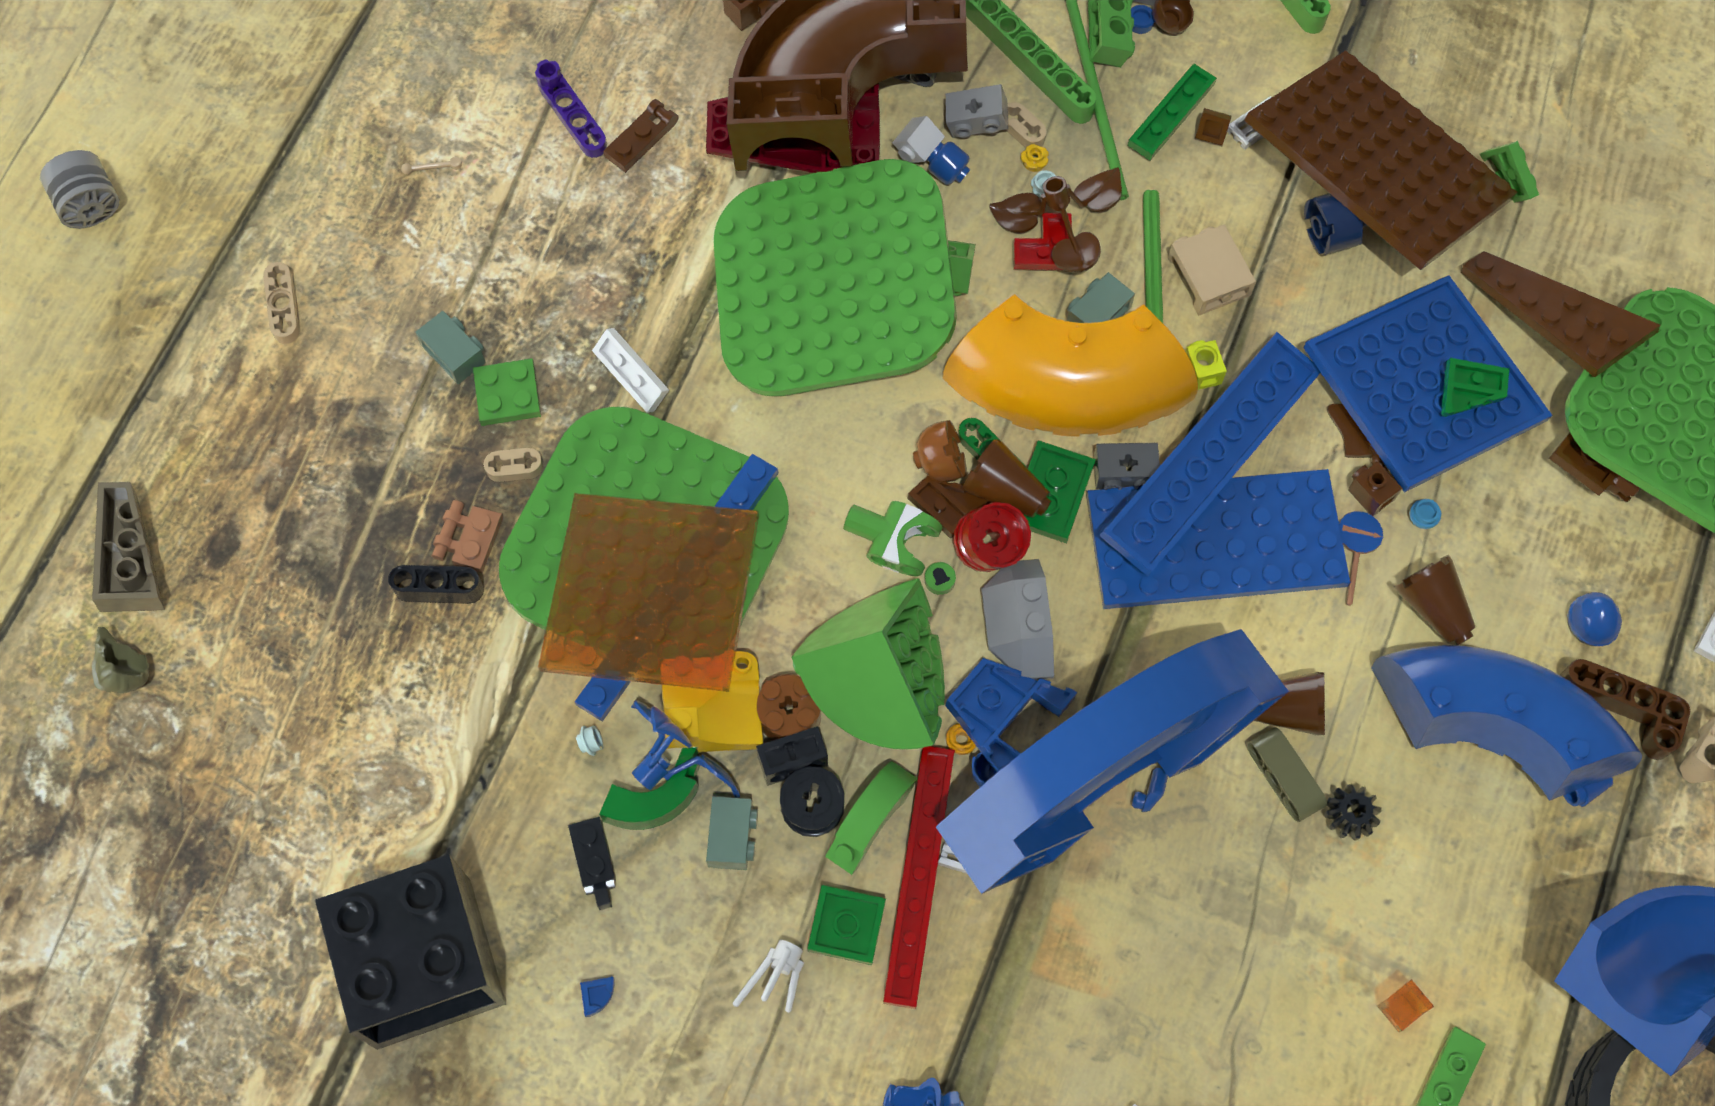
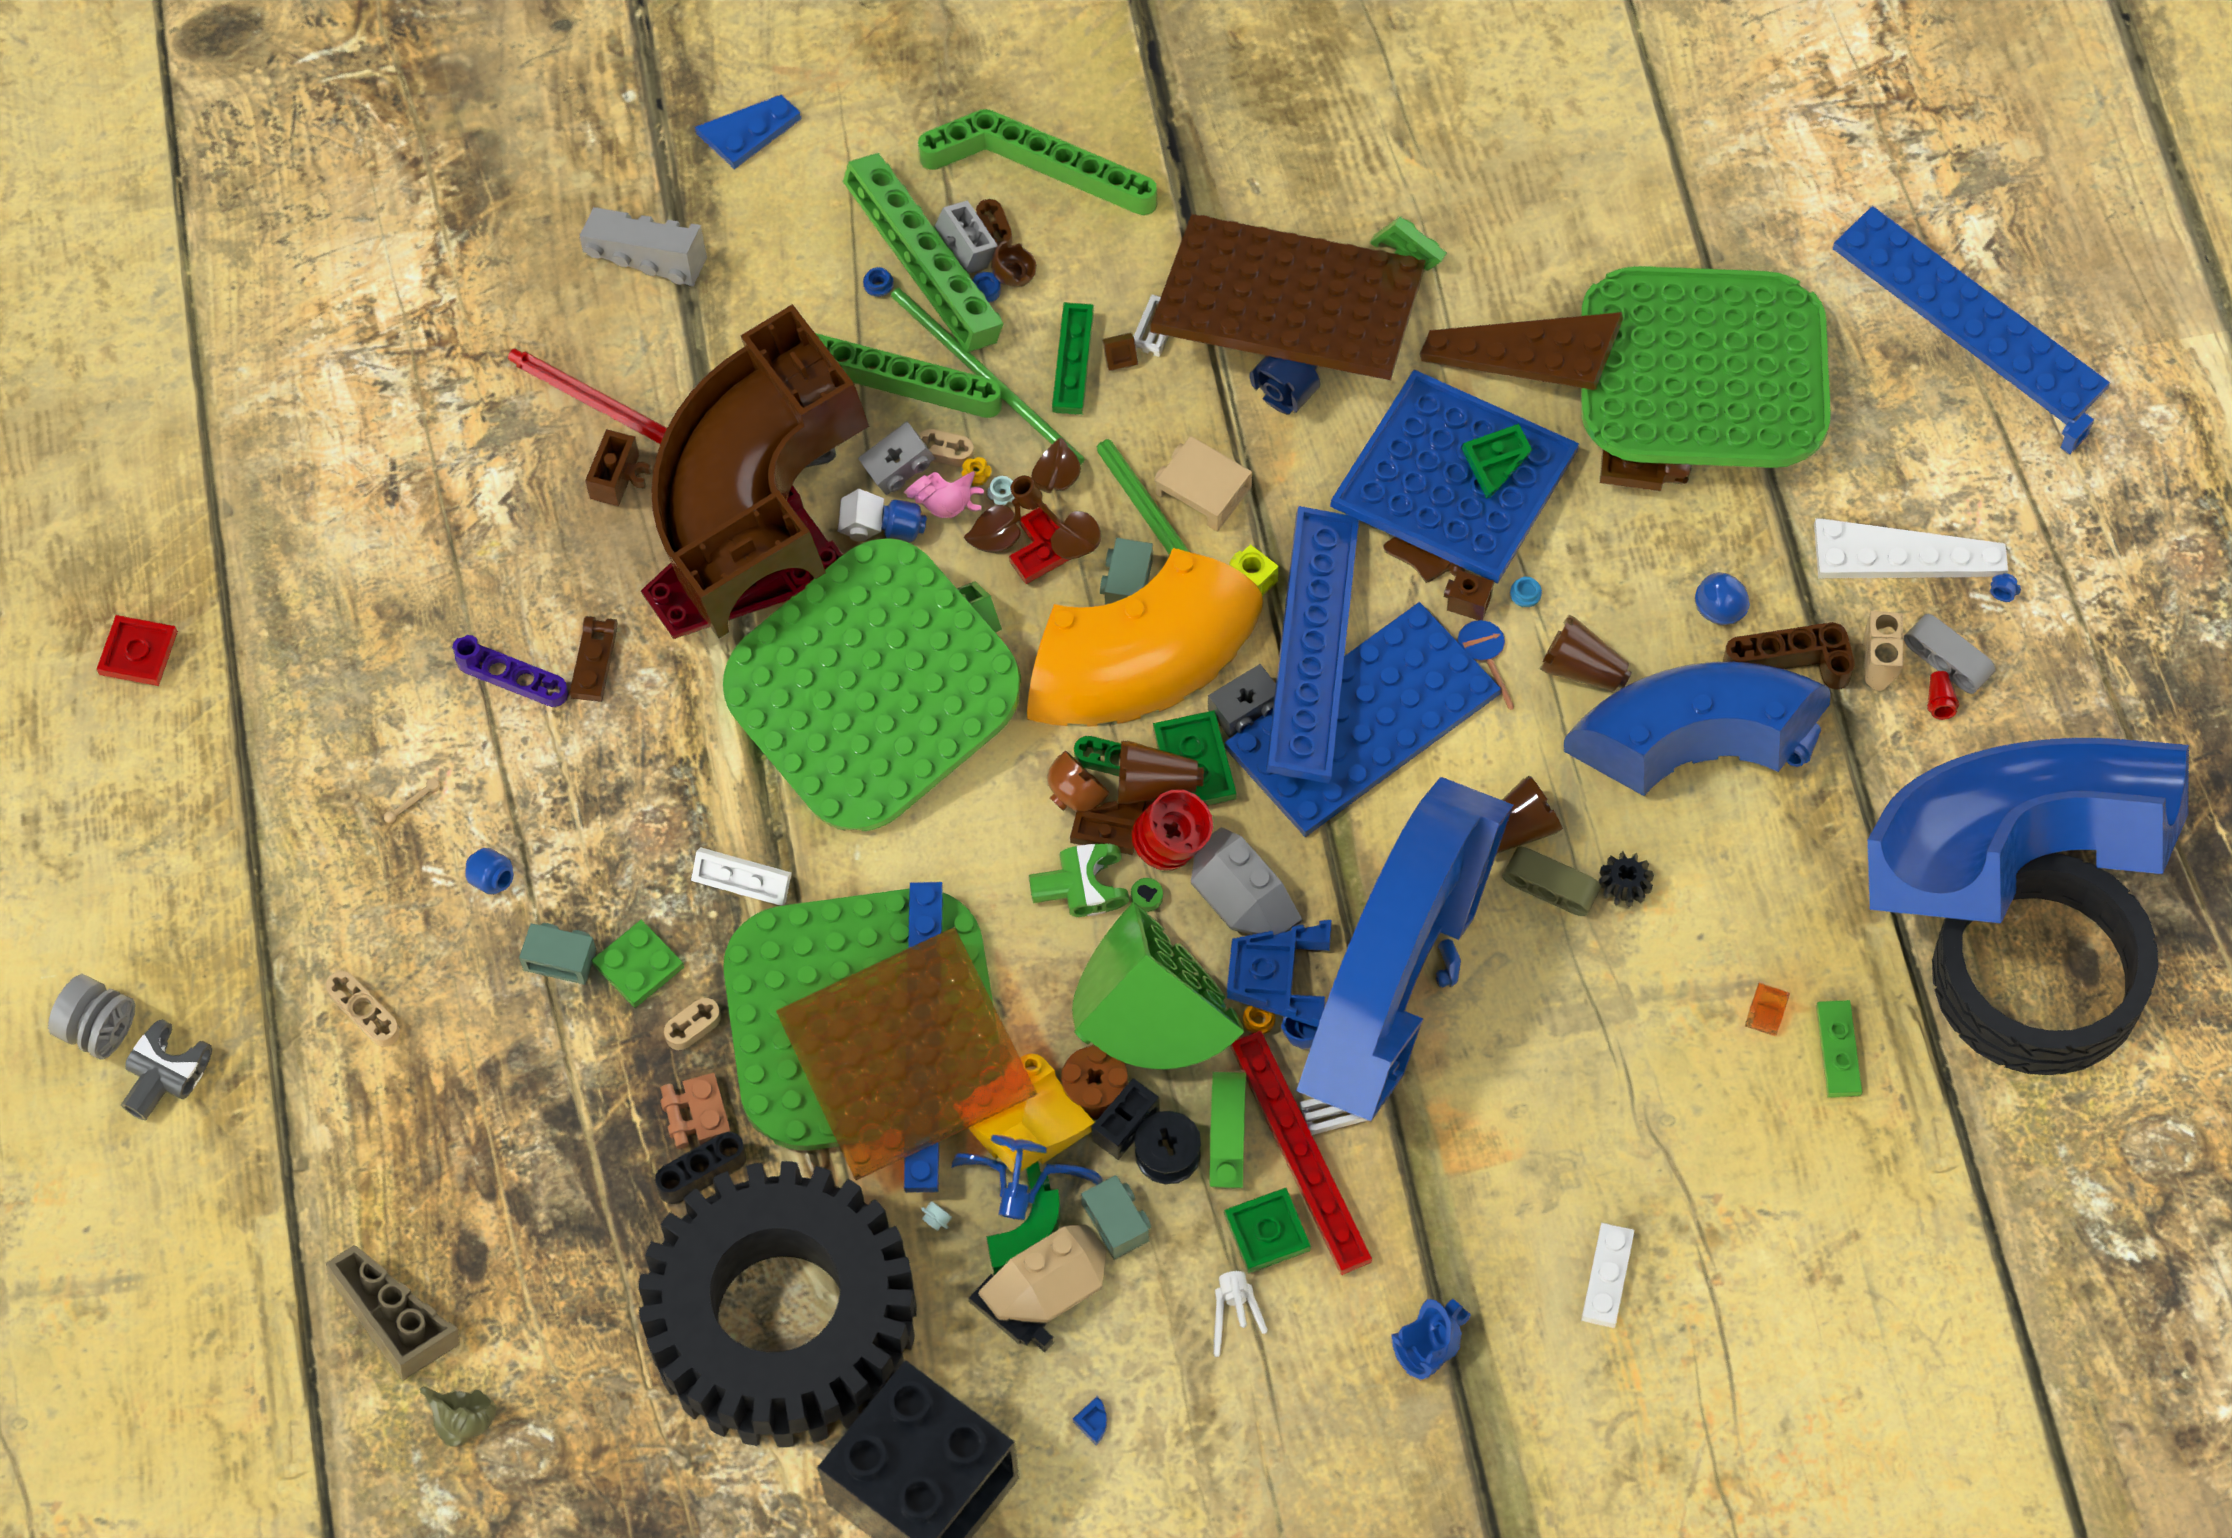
camera: 30 degrees left, 5 degrees down
(103, 261) = (161, 1071): none -> dark grey connector
(360, 672) = (759, 1222): none -> black tyre
(445, 252) = (489, 871): none -> blue head
(640, 850) = (1048, 1277): none -> tan wedge
(992, 163) = (942, 497): none -> bright pink helmet

